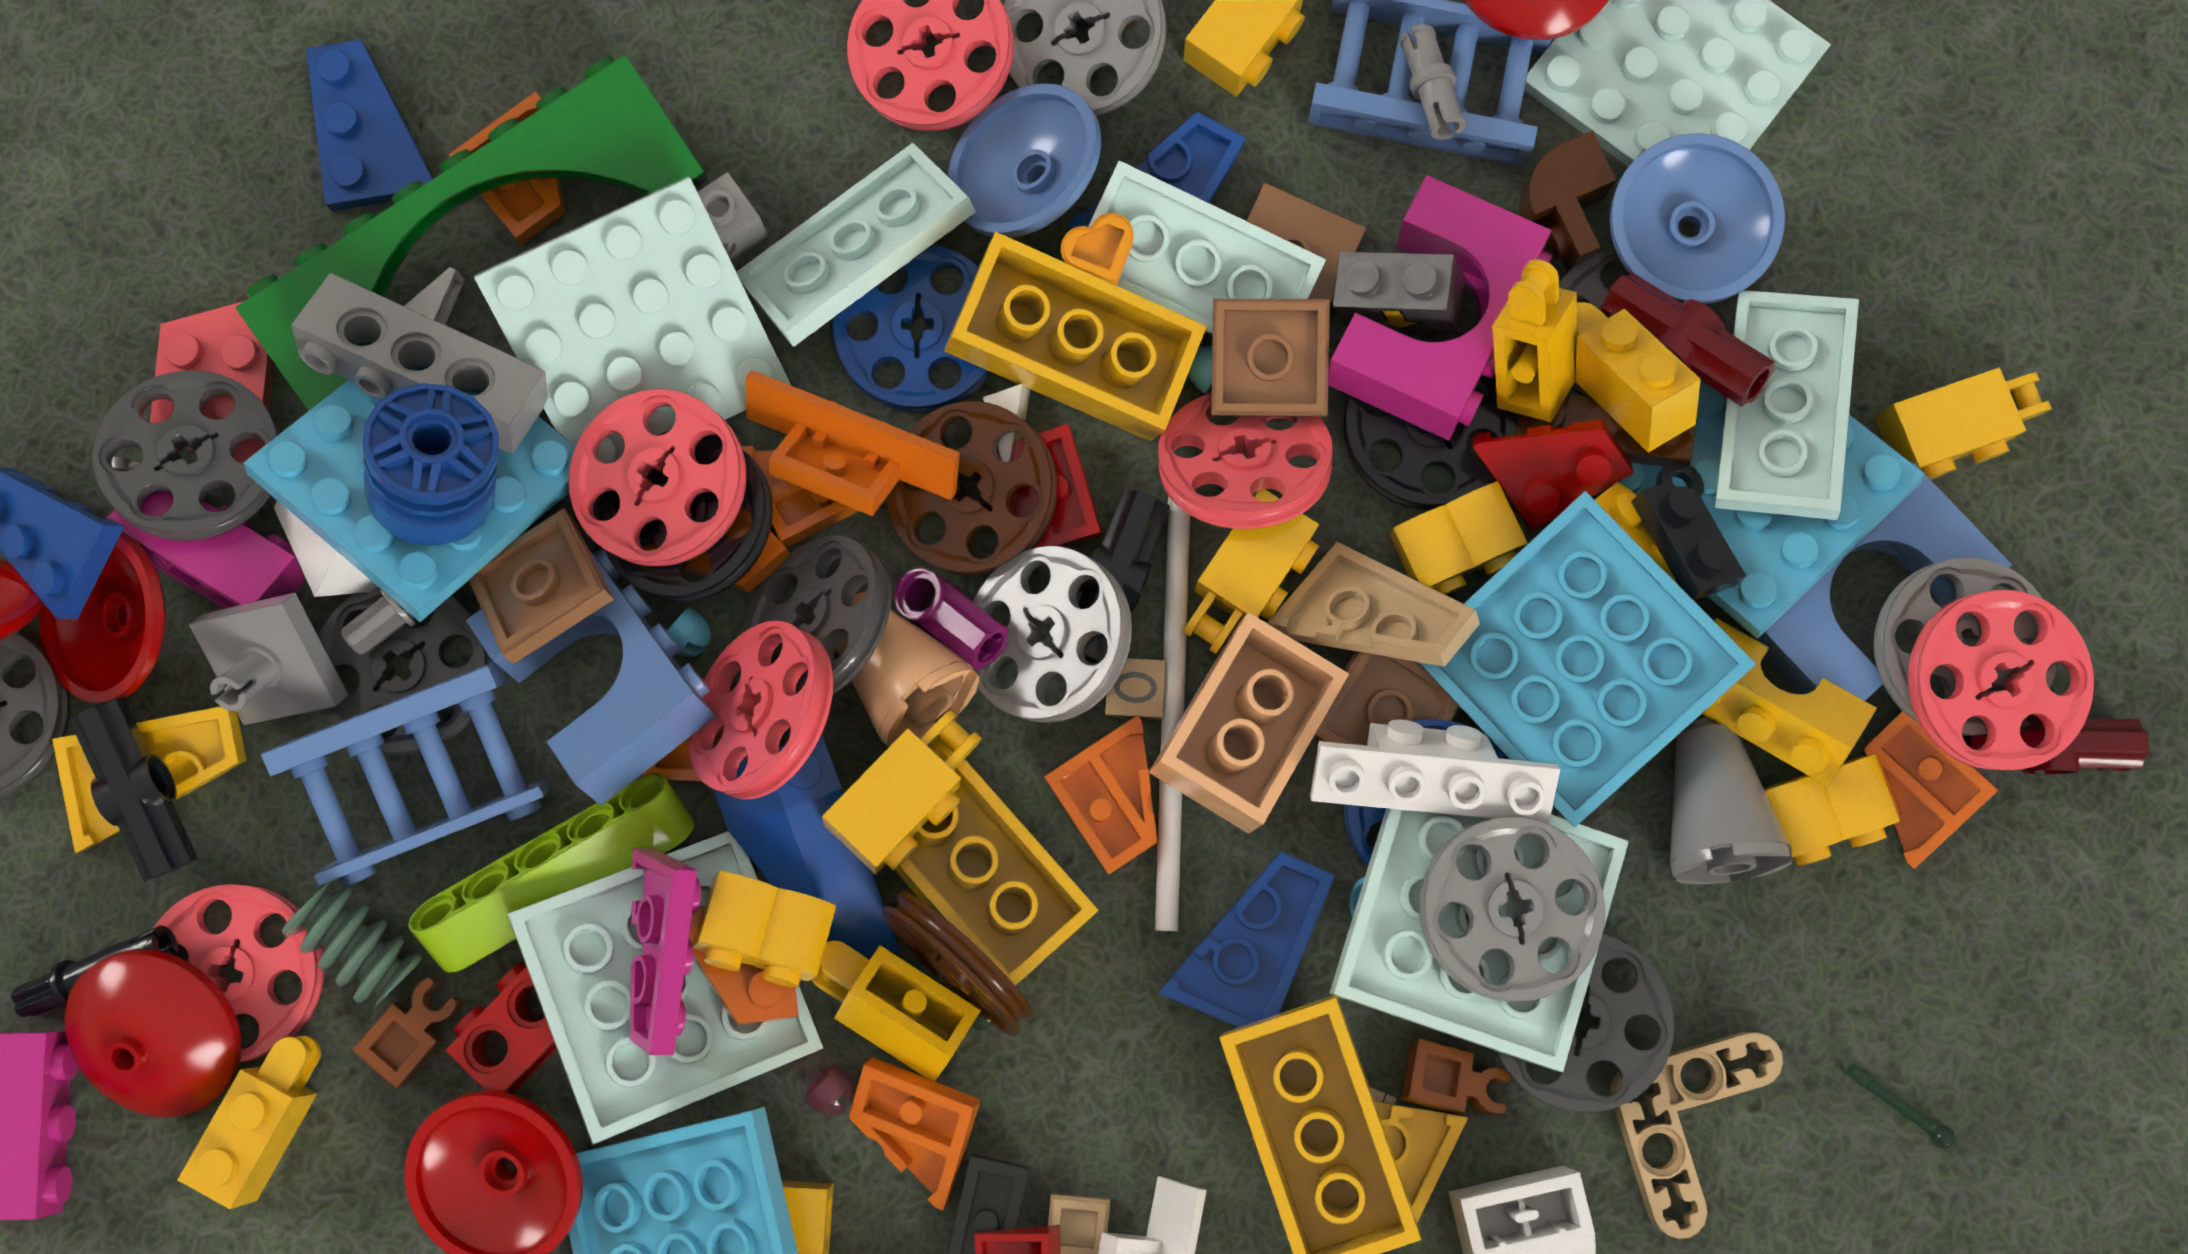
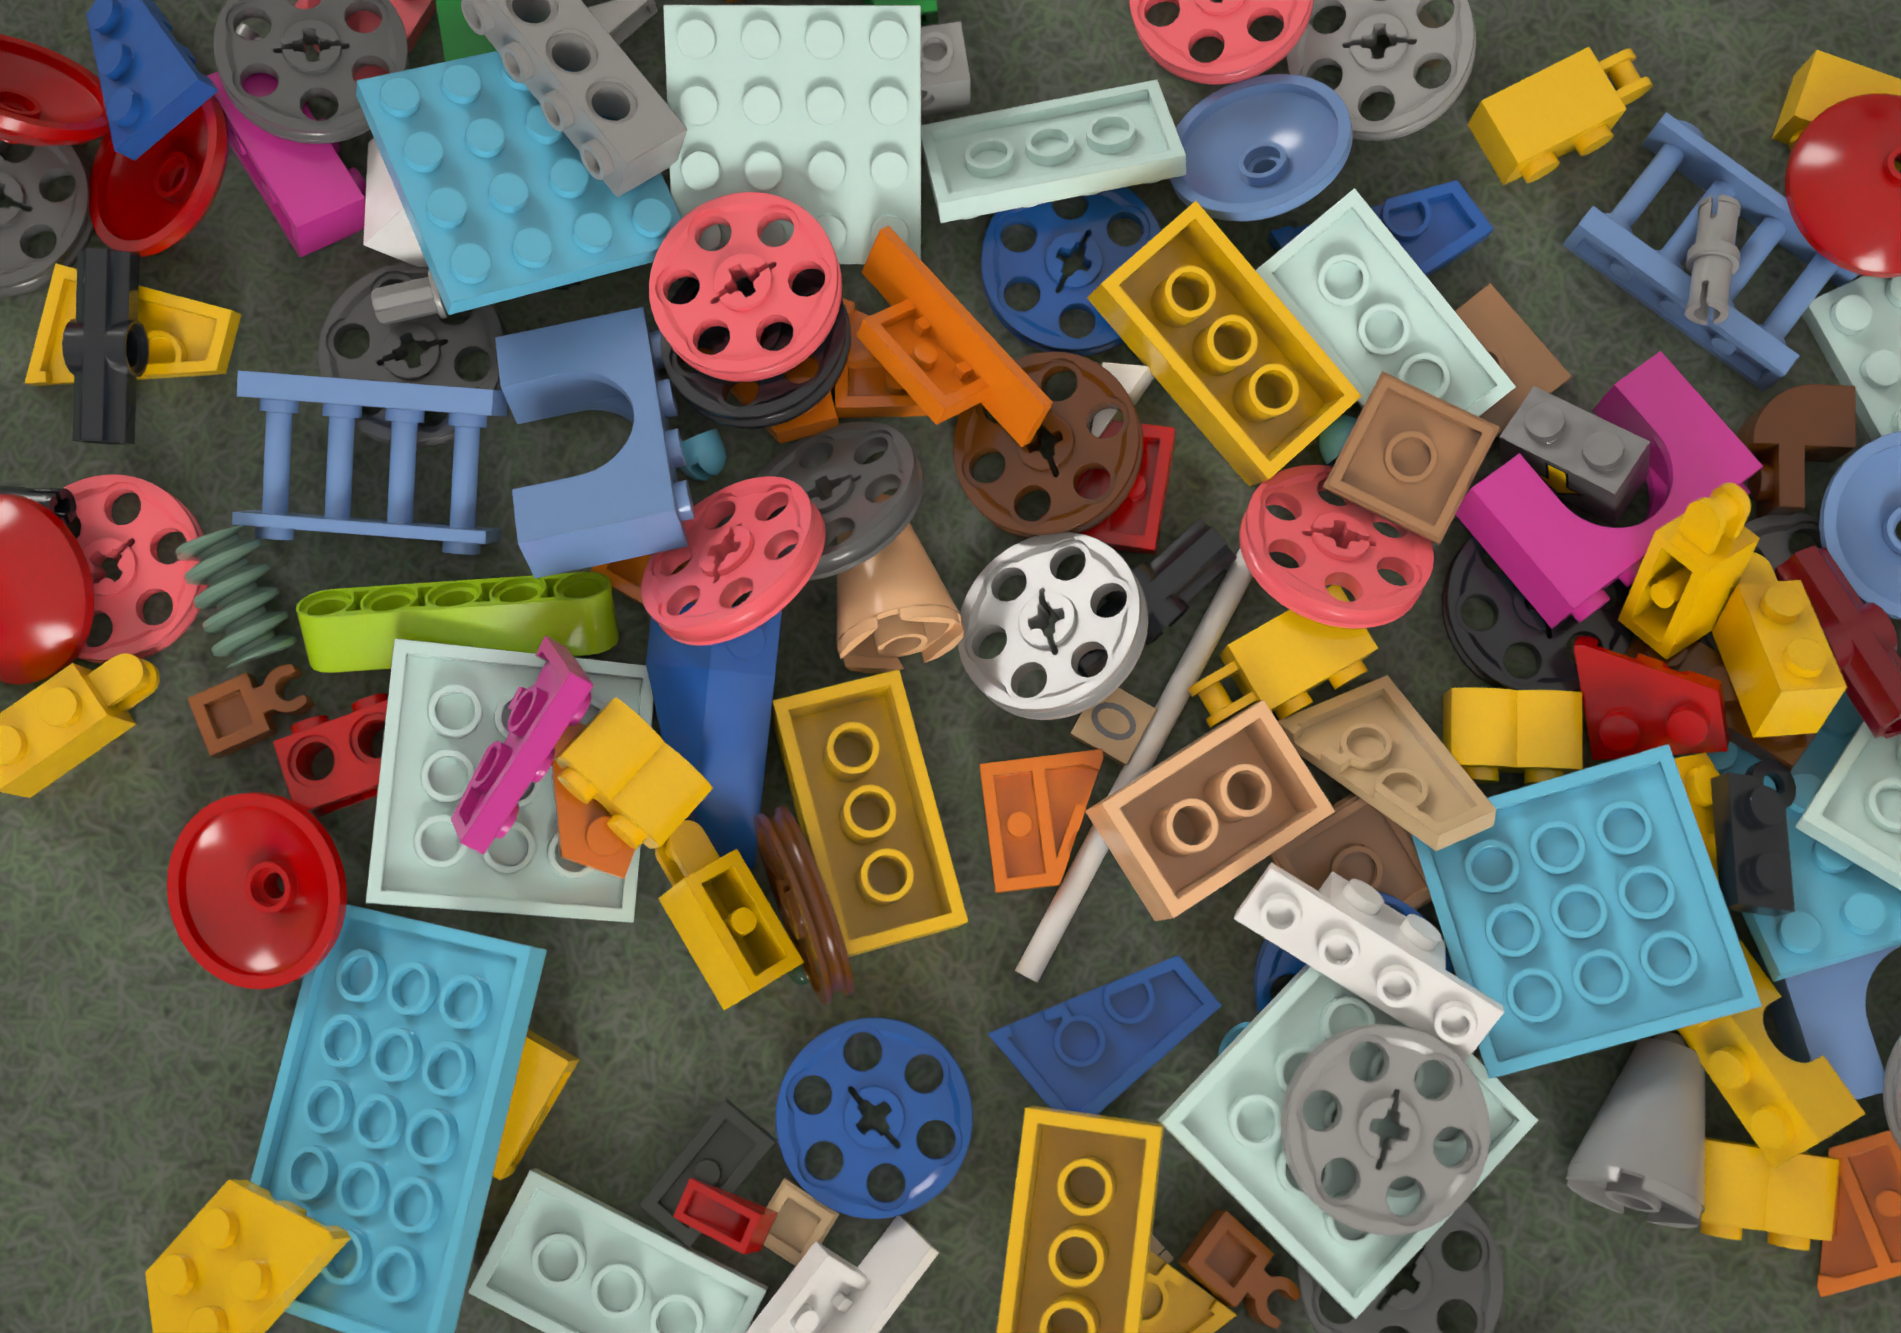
camera: 30 degrees right, 0 degrees up
(267, 660) = (290, 285): light grey tile -> none
(430, 463) = (531, 163): blue wheel -> none
(540, 586) = (580, 337): medium nougat plate -> none
(827, 1089) = (617, 965): clear pink hinge -> none
(901, 795) = (829, 710): yellow brick -> none
(916, 1124) = (686, 1042): orange wing -> none
(951, 617) = (965, 562): magenta piece -> none
(1073, 1125) = (863, 1151): none -> blue wedge
(1099, 248) = (1291, 266): light orange tile -> none

